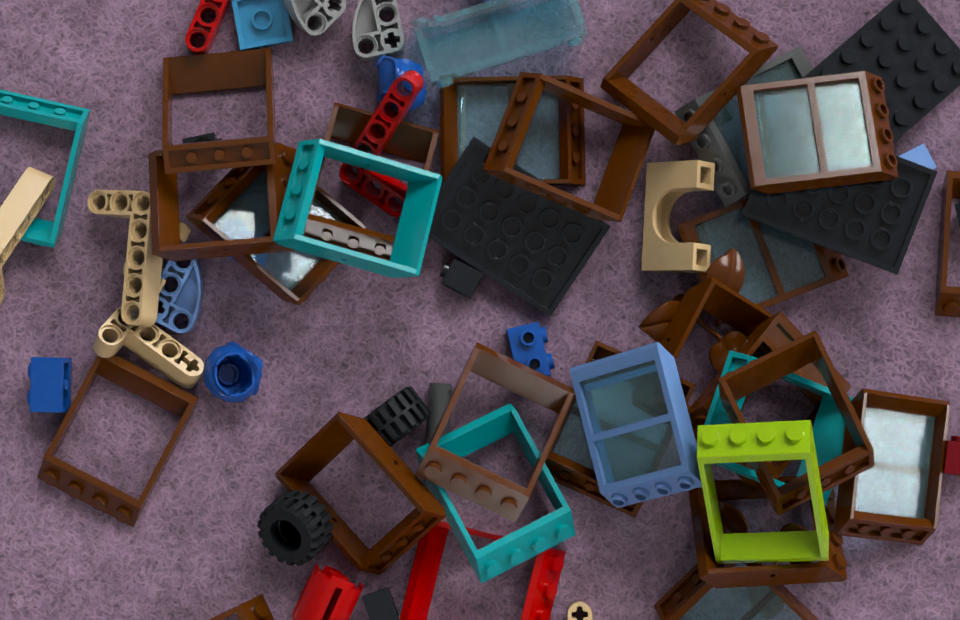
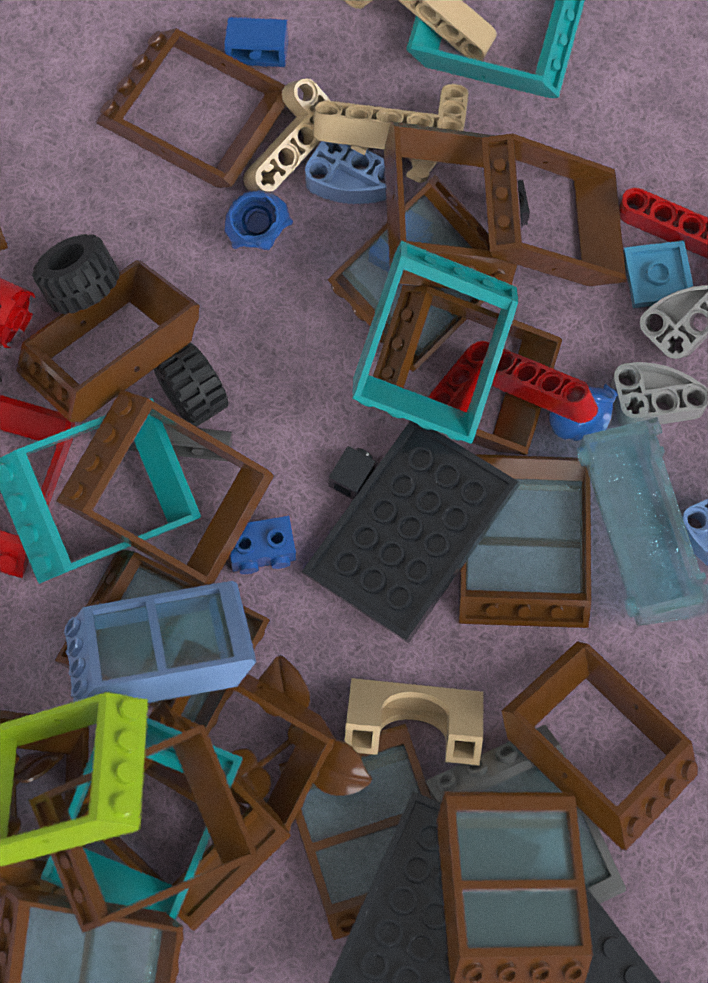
camera: 90 degrees right, 15 degrees down
(621, 169) = (472, 655): reddish brown window -> none

